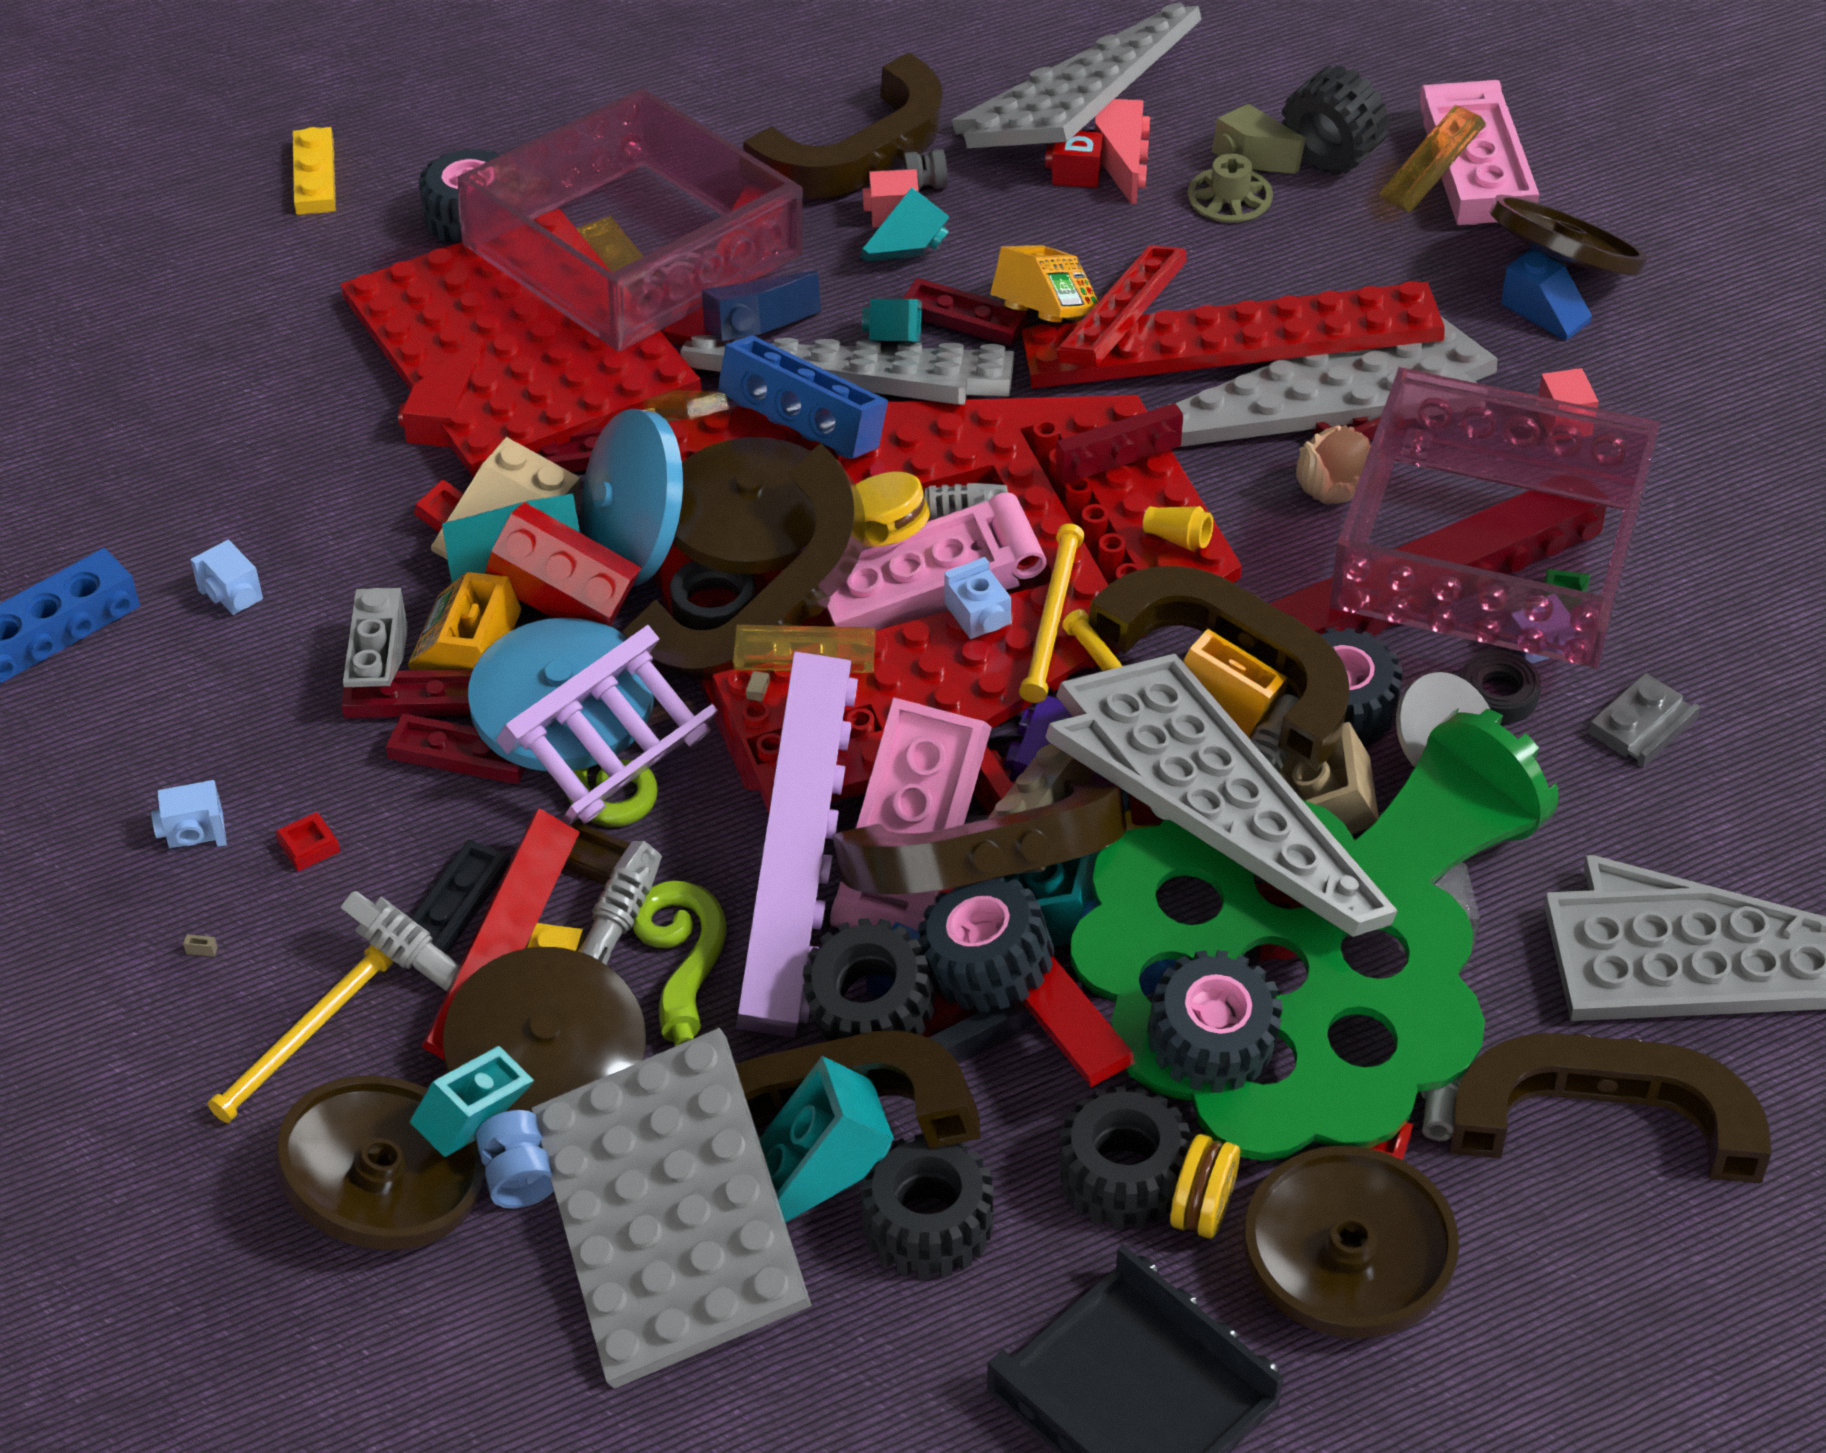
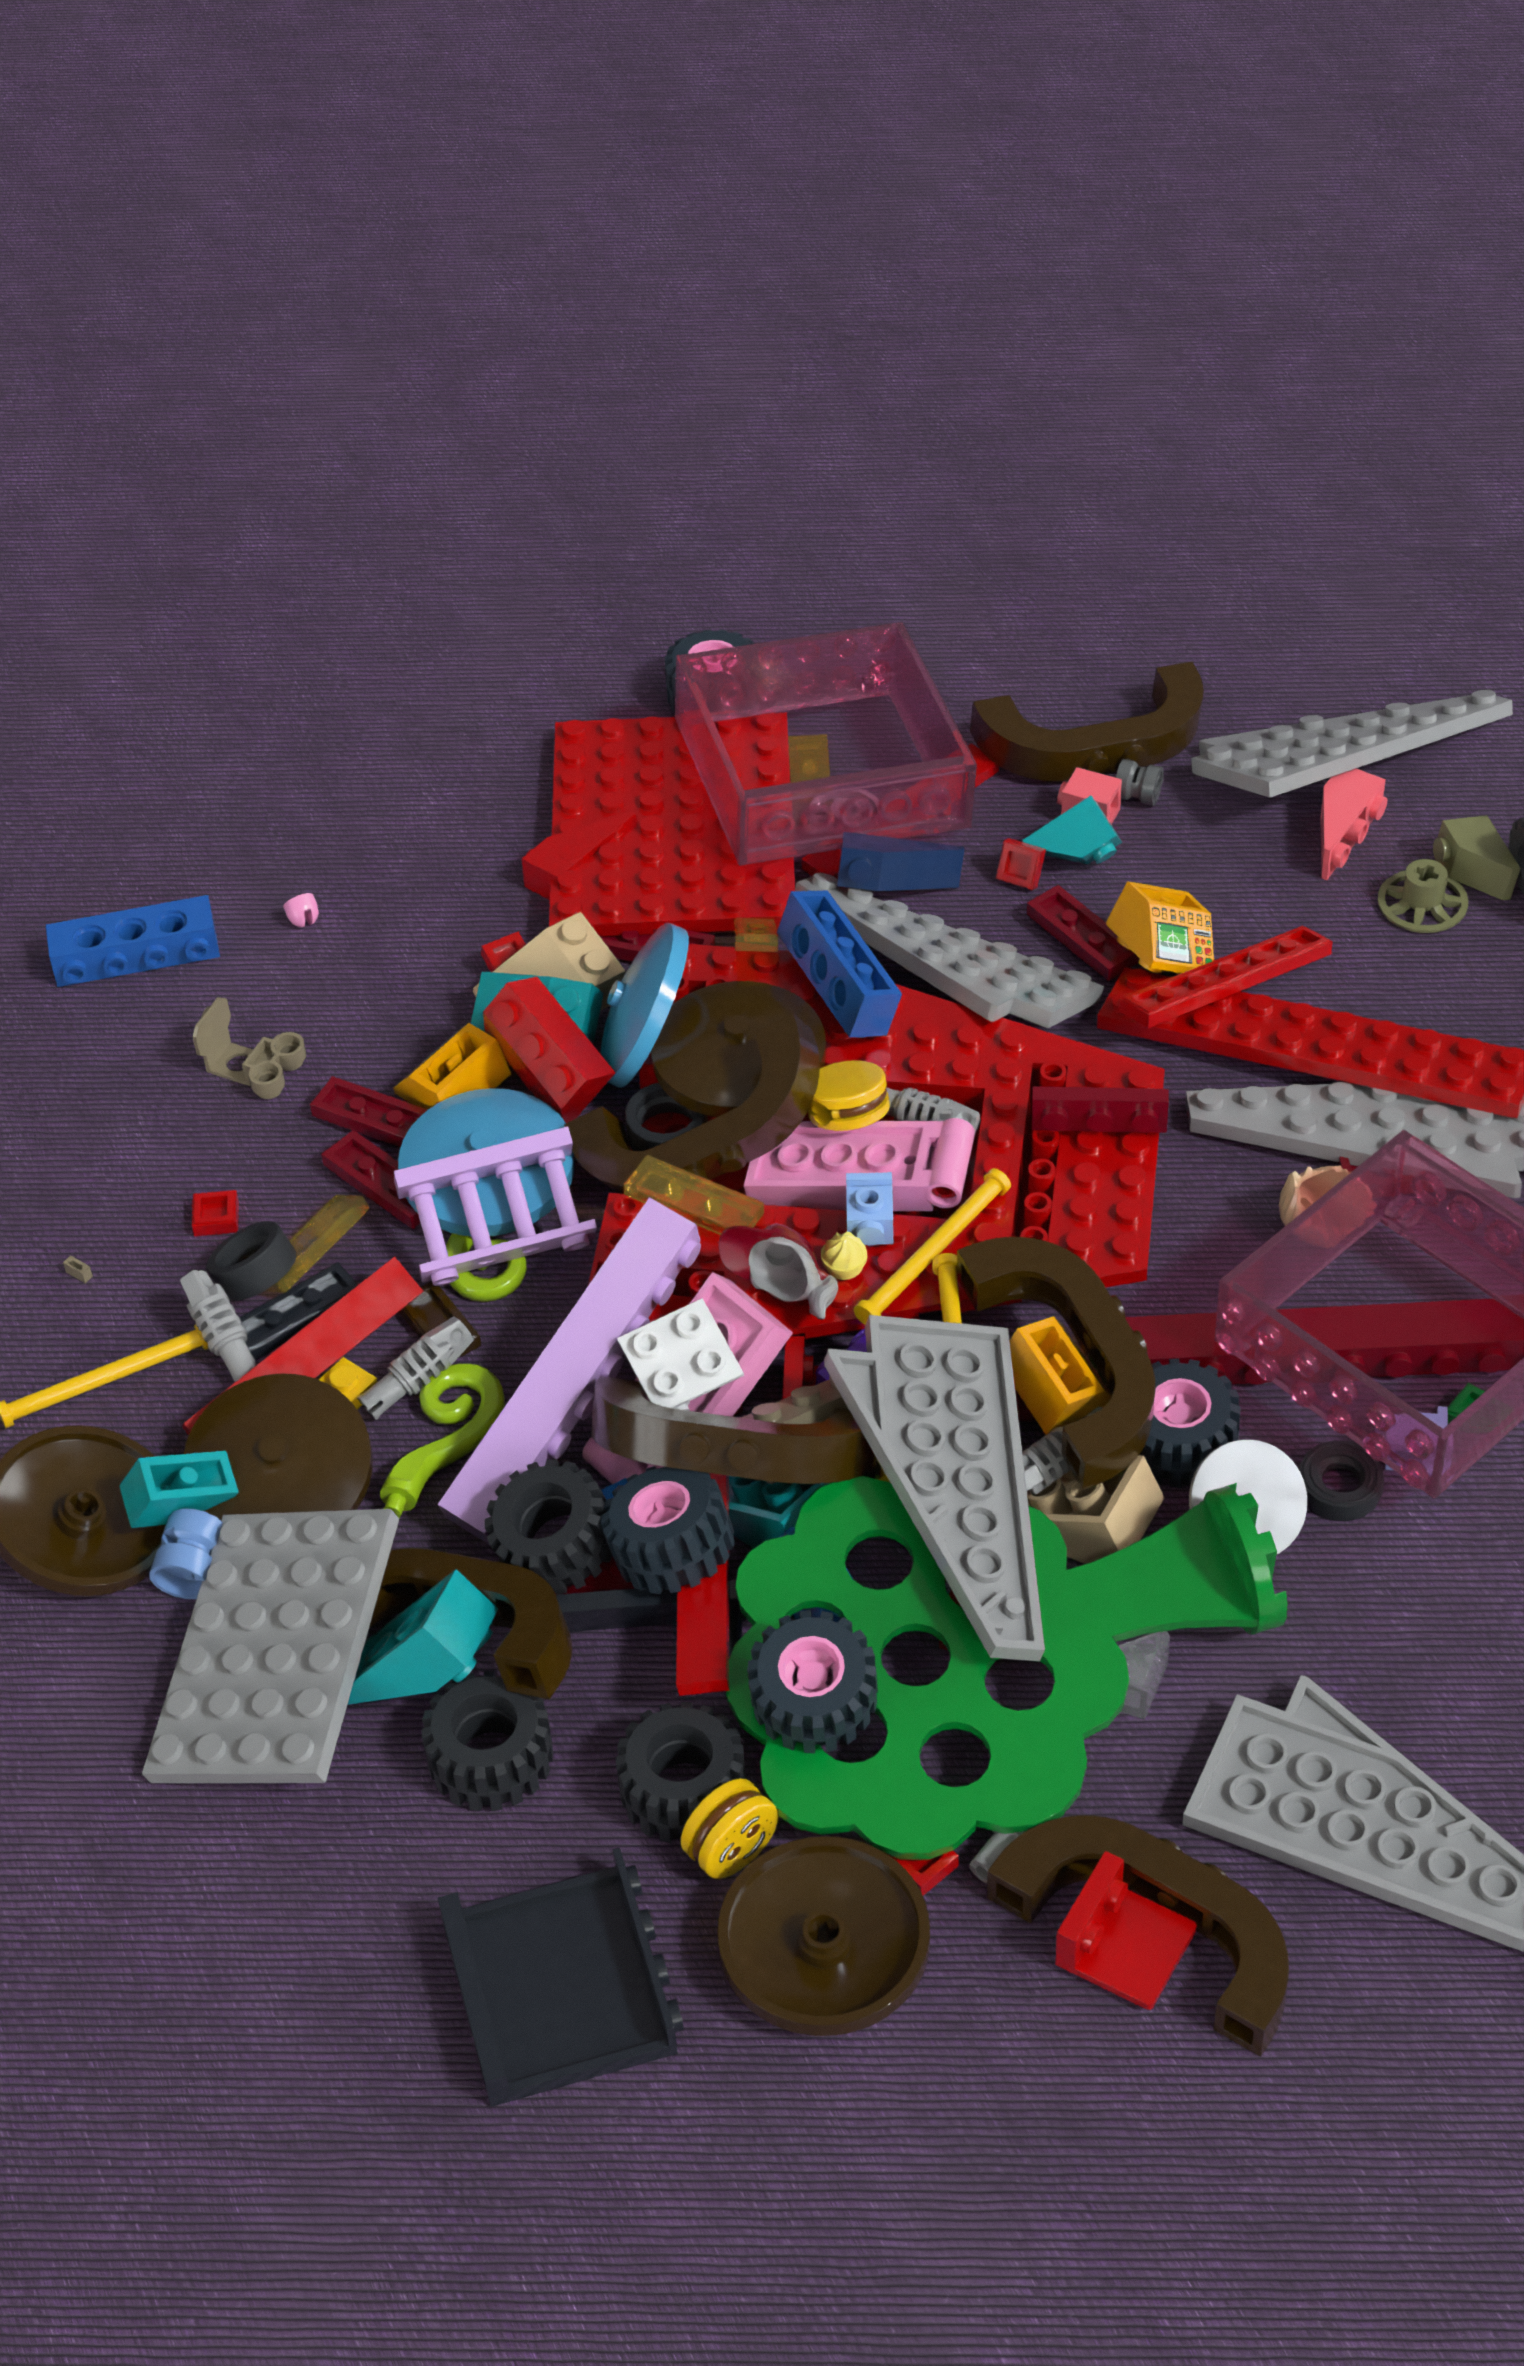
camera: 30 degrees right, 0 degrees up
(189, 815) = (135, 1154): light blue brick -> none
(202, 534) = (301, 908): none -> bright pink hinge
(227, 577) = (294, 956): light blue brick -> none
(268, 683) = (263, 1064): none -> dark tan piece
(314, 170) = (605, 609): yellow plate -> none
(375, 638) = (370, 1057): light grey slope -> none
(376, 852) = (251, 1260): none -> black tyre
(428, 833) = (320, 1235): none -> clear yellow tile
(757, 686) = (628, 1216): dark tan piece -> none
(869, 271) = (1020, 863): none -> red tile
(893, 320) = (1006, 919): teal slope -> none
(905, 784) = (680, 1356): none -> white hinge
(934, 674) = (779, 1263): none -> light grey hair
(980, 647) = (844, 1256): none -> light yellow plate
(1077, 160) = (1290, 818): red brick -> none
(1180, 525) = (1106, 1211): yellow cone -> none
(1594, 1134) = (1121, 1937): none -> red bracket
(1644, 720) = (1462, 1568): flat silver plate -> none

